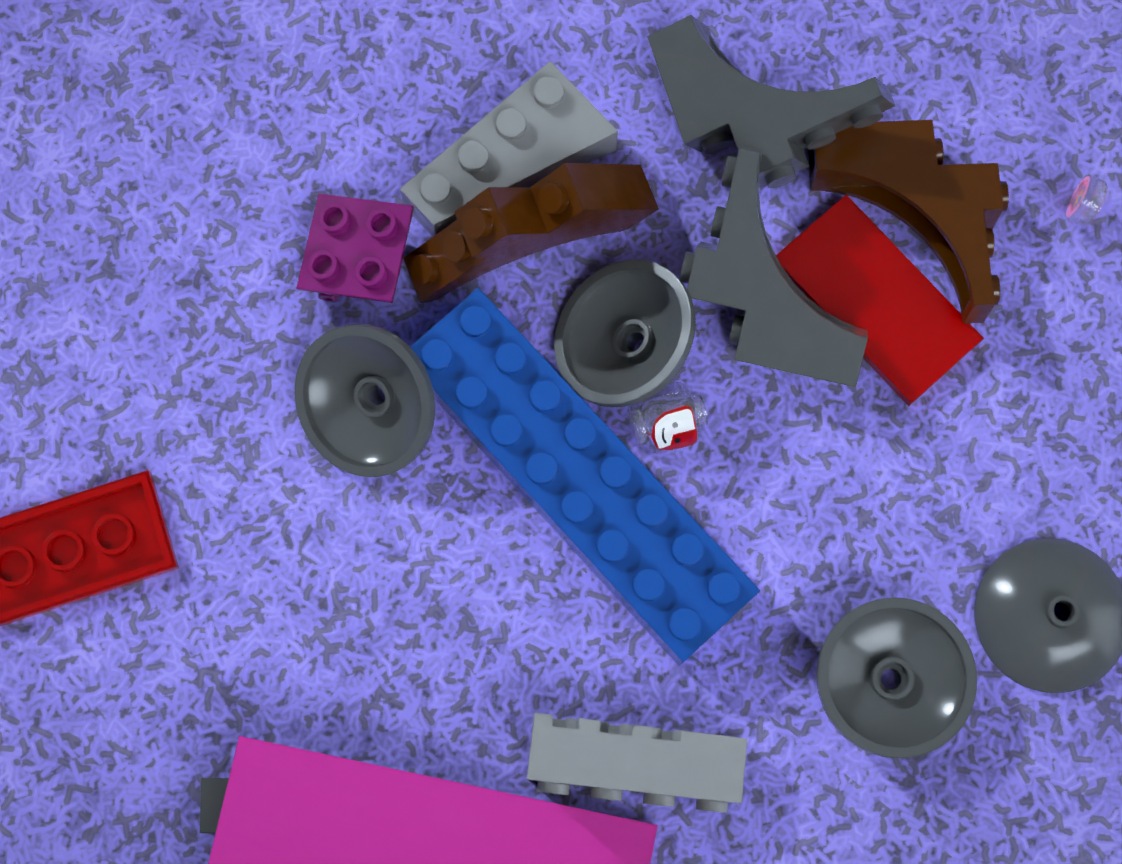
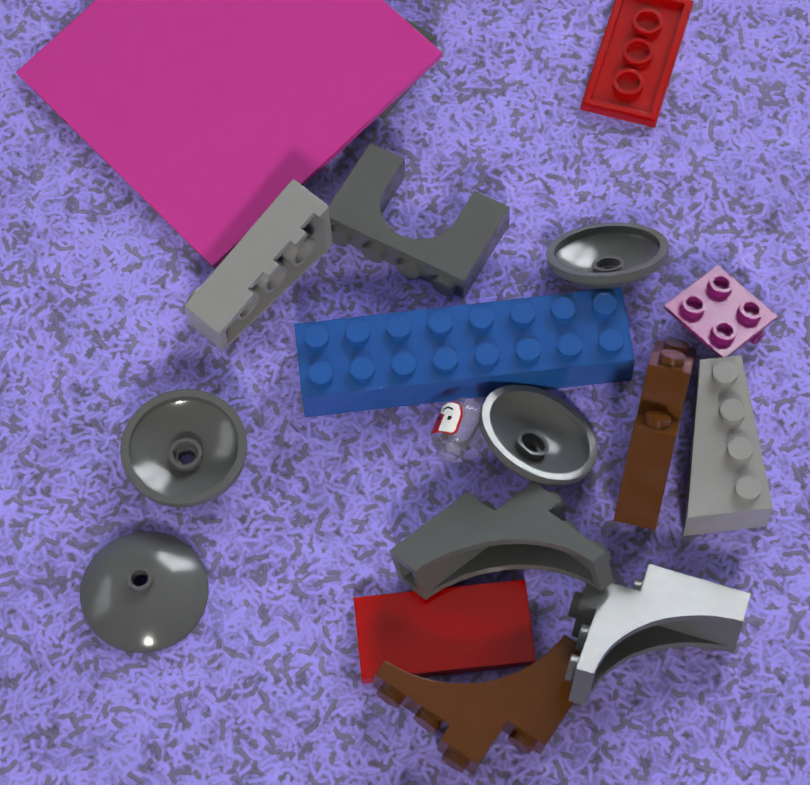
camera: 130 degrees right, 15 degrees down
(477, 566) = (447, 260): none -> dark grey arch

